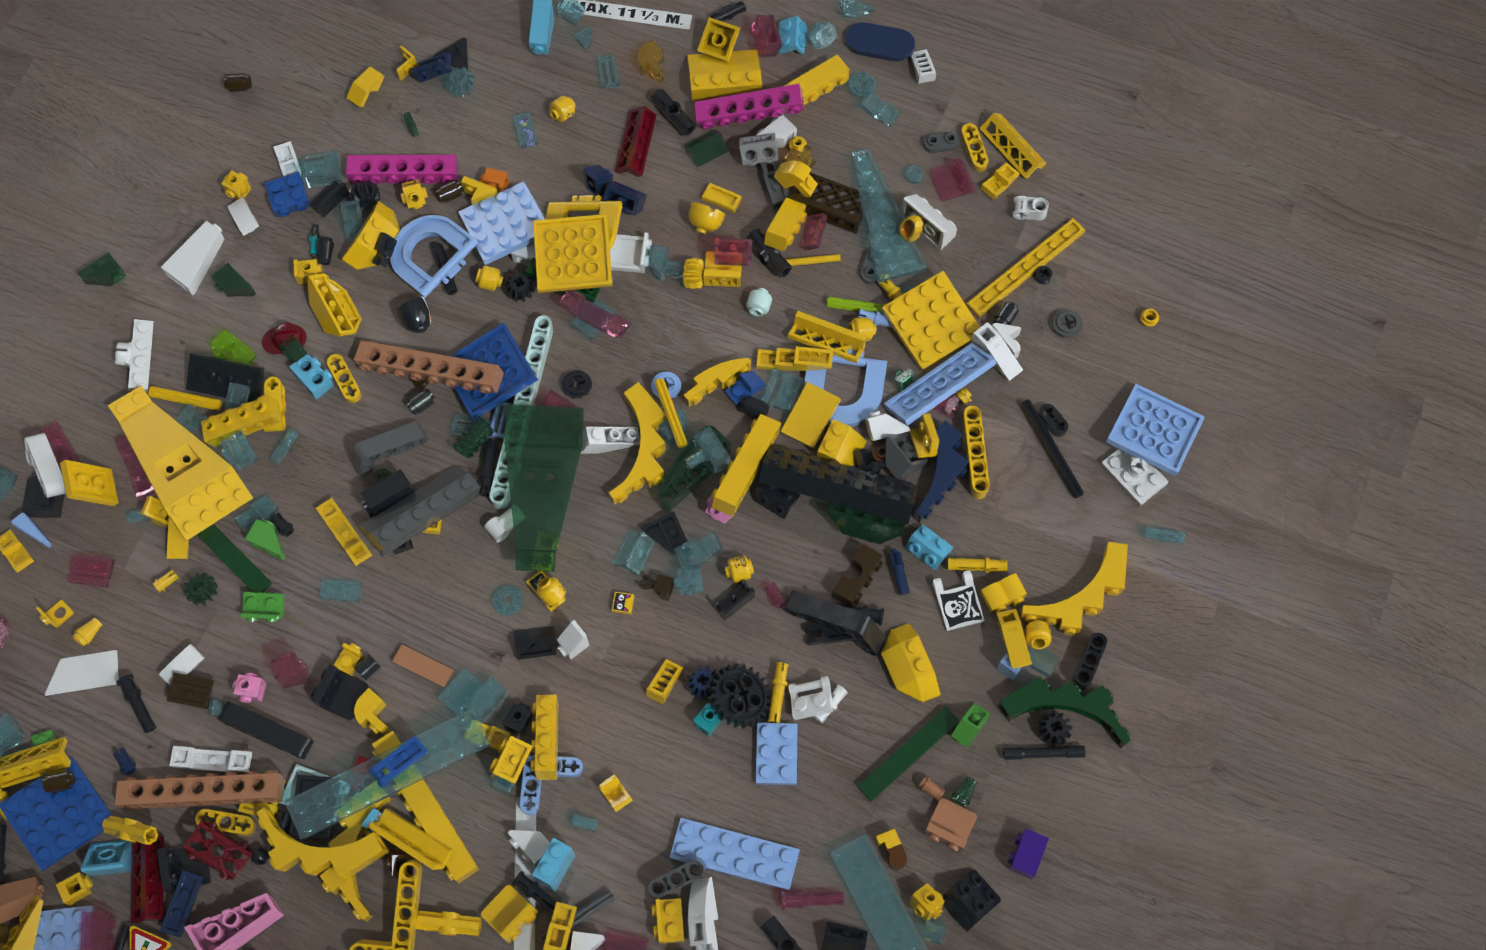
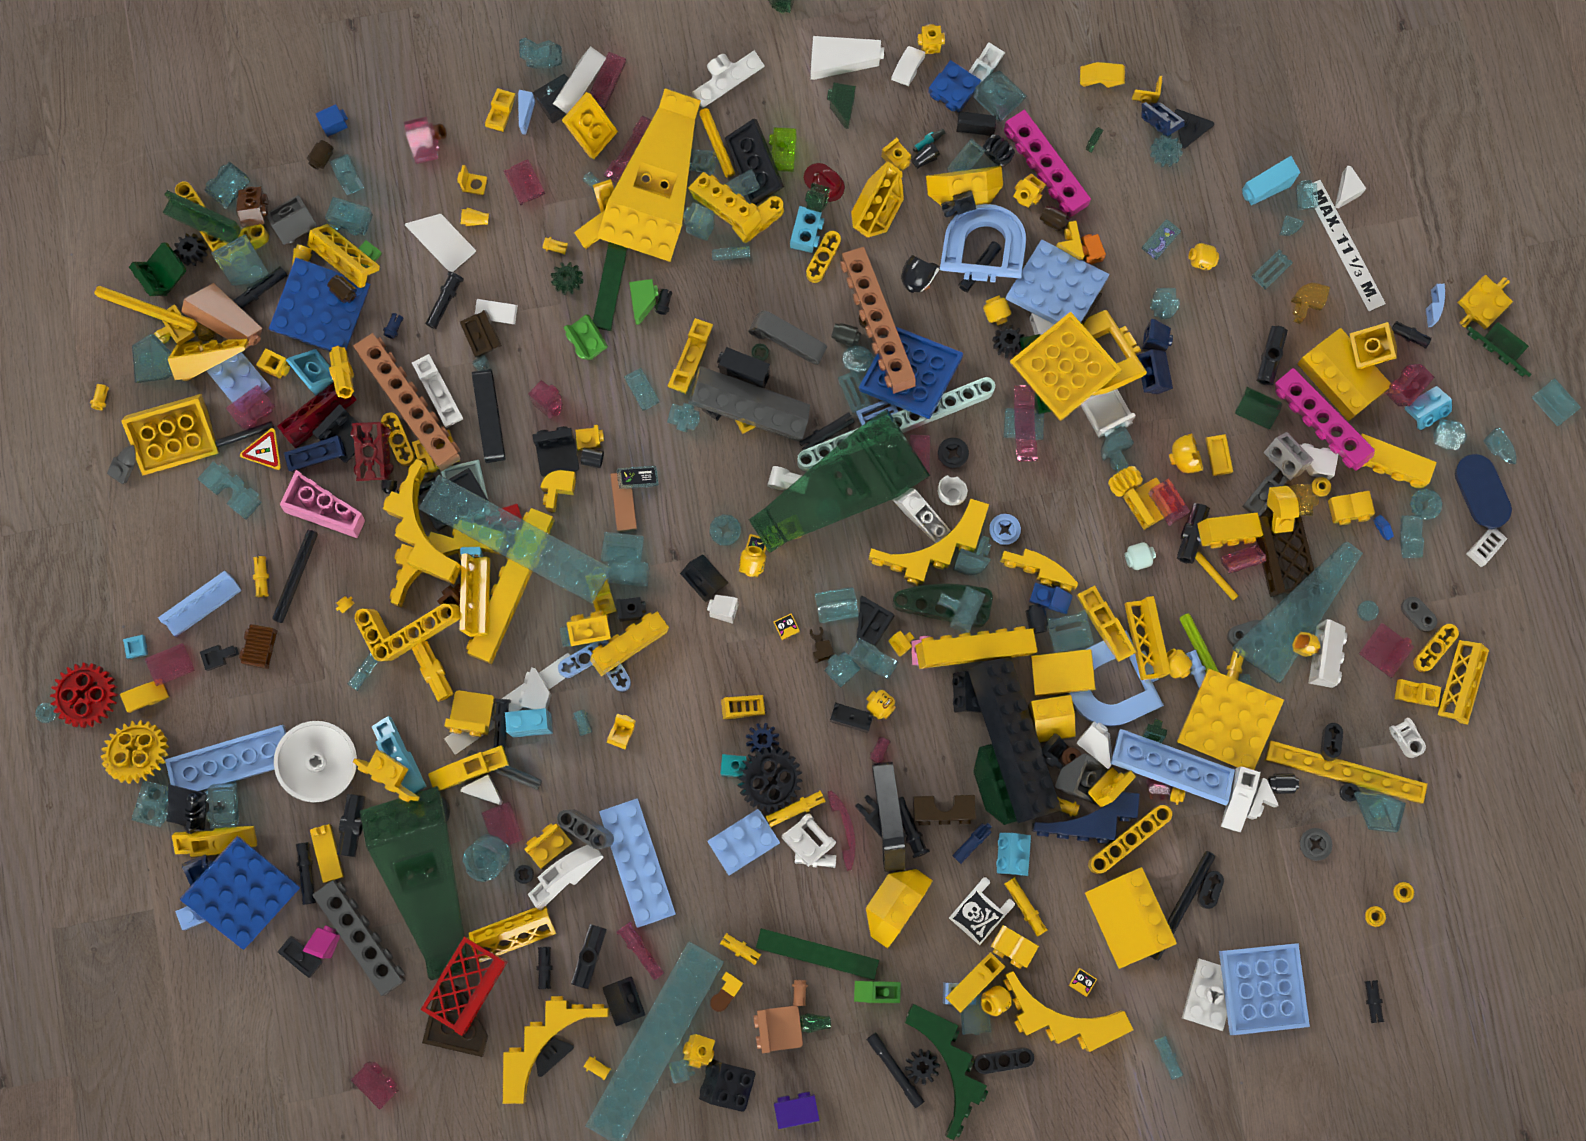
camera: 55 degrees right, 10 degrees up
(249, 688) = (512, 377): bright pink brick -> none
(261, 509) = (661, 275): clear light blue slope -> none
(384, 571) = (684, 417): none -> clear light blue brick
(398, 761) = (527, 541): blue plate -> none
(411, 640) = (637, 477): none -> tile
(443, 402) = (859, 353): none -> clear light blue gear
(474, 439) = (842, 402): clear green piece -> none
(576, 157) = (1164, 302): none -> clear light blue brick
(607, 403) = (952, 490): none -> white hair
(639, 141) = (1221, 344): dark red fence -> none
(670, 413) = (978, 551): yellow axle -> none
(700, 522) = (901, 642): none -> yellow tile
(796, 657) = (837, 805): none -> clear pink slope
(828, 134) = (1351, 507): none -> yellow brick
(859, 122) = (1383, 527): none -> blue tile
(864, 814) = (740, 949): none -> yellow pin
(921, 480) = (1068, 807): none -> yellow pin
(994, 263) = (1327, 741): none -> black beam
(1038, 490) = (1130, 918): none -> yellow slope
(1064, 561) = (1082, 982): none -> tile
(1073, 259) = (1380, 811): none -> clear light blue slope
(1143, 282) = (1409, 892): none -> yellow plate
(1214, 359) = (1374, 1001): none -> black pin

